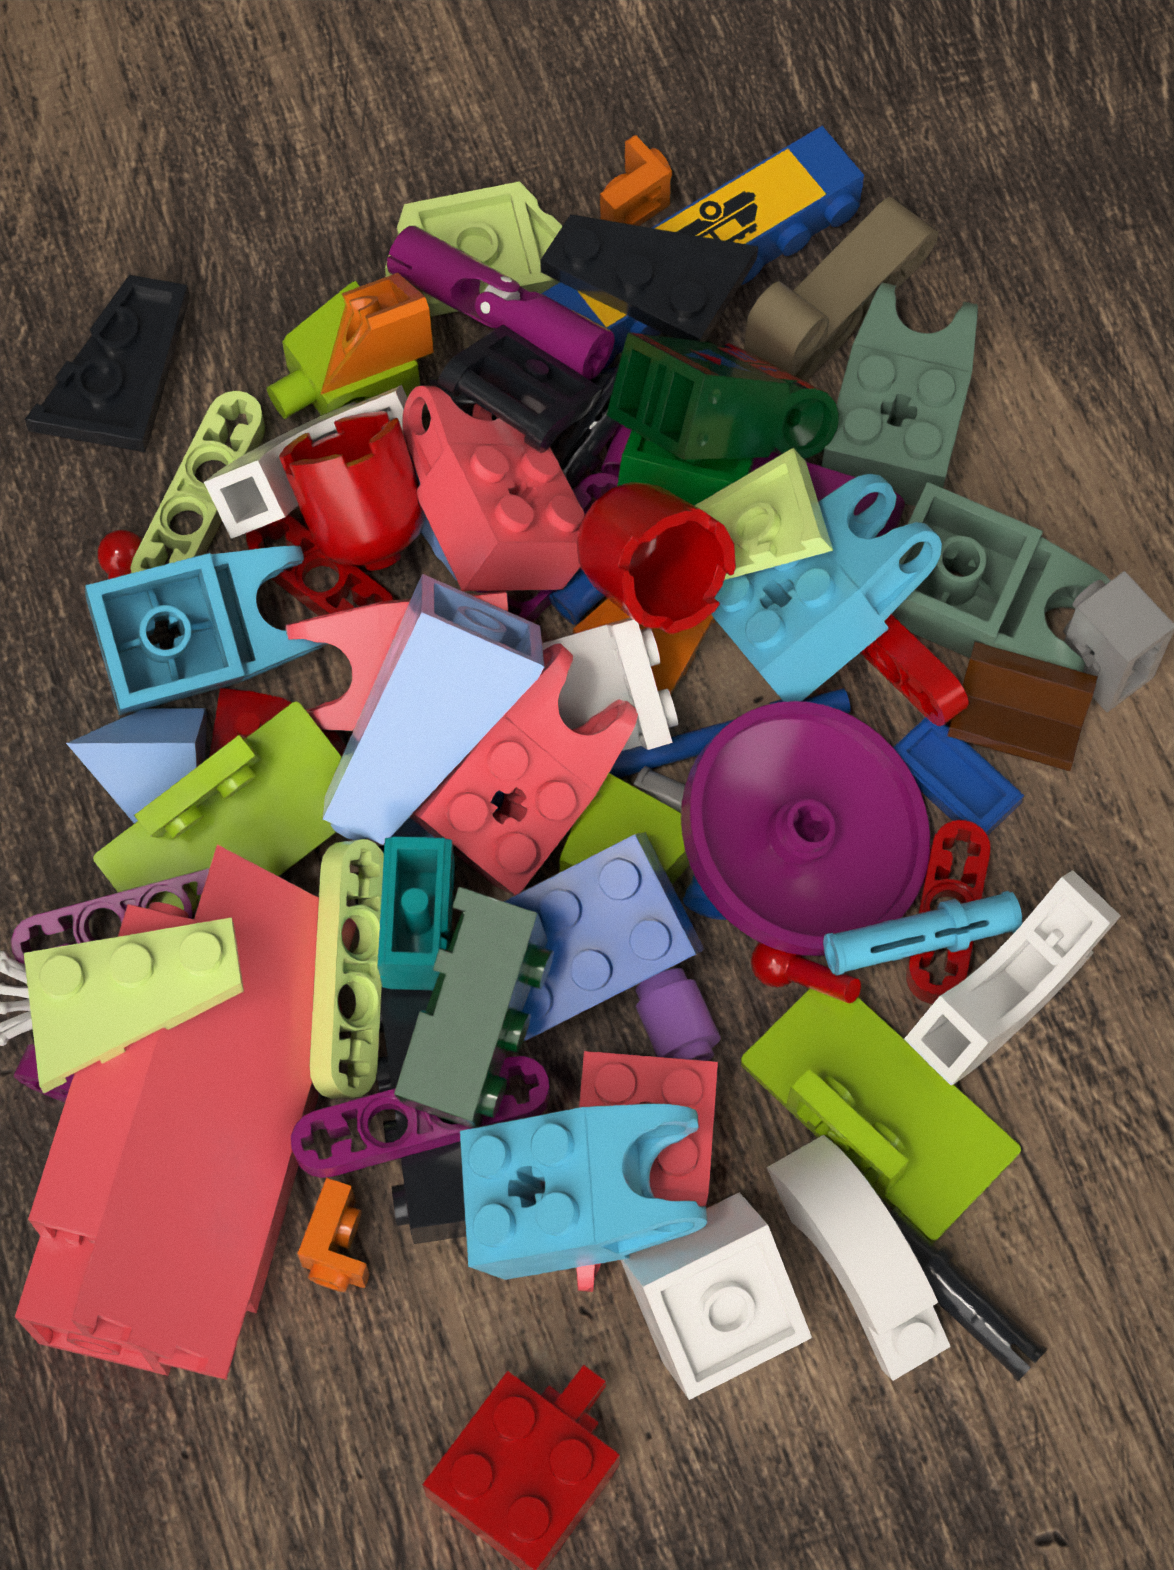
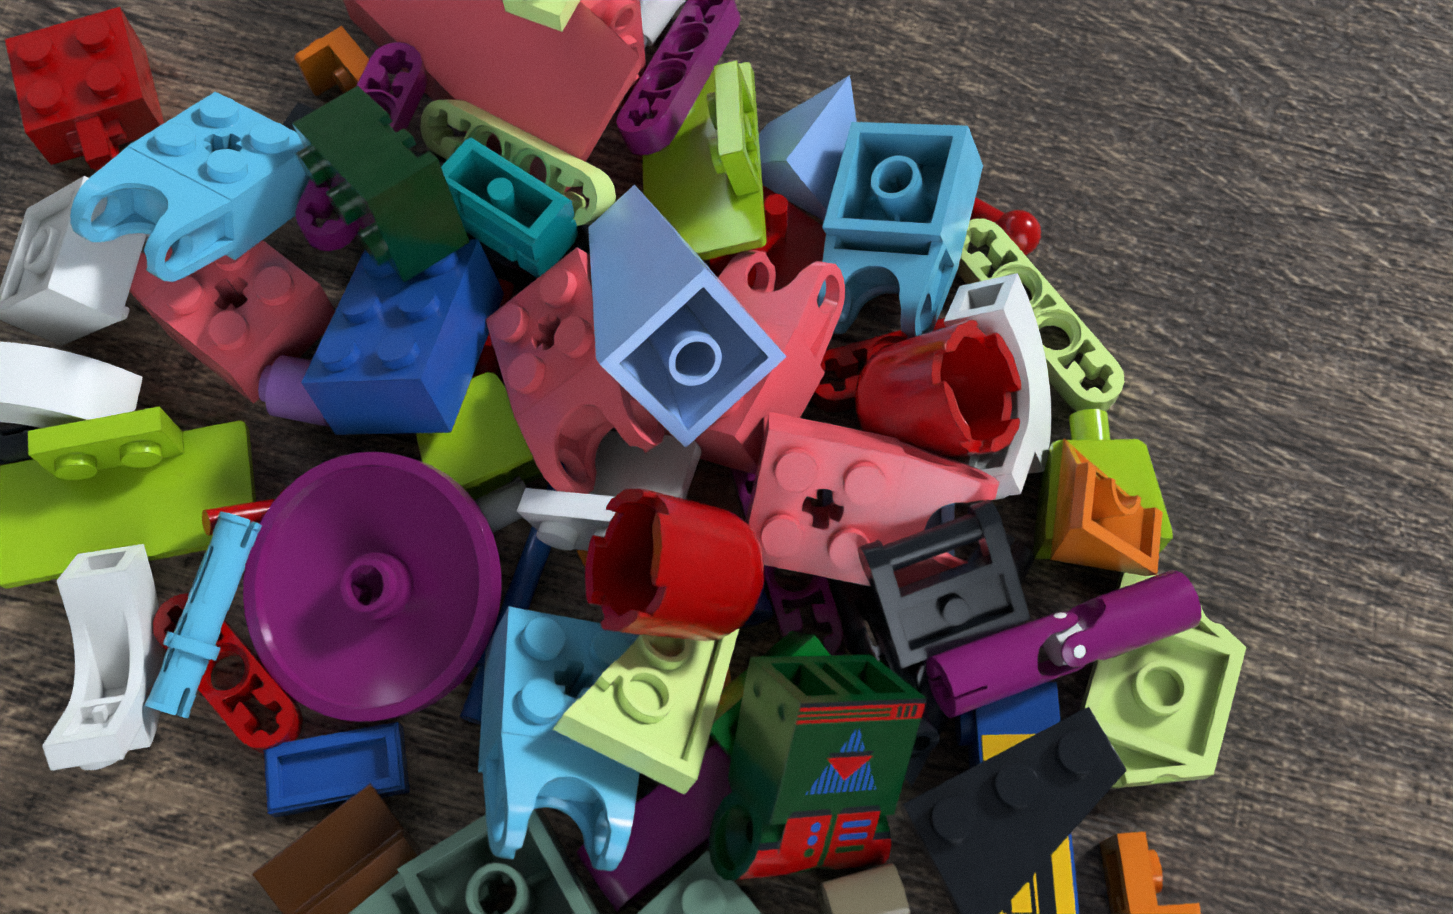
camera: 125 degrees right, 0 degrees up
(120, 372) = (1200, 318): black wing -> none
(917, 673) = (427, 788): red beam -> none

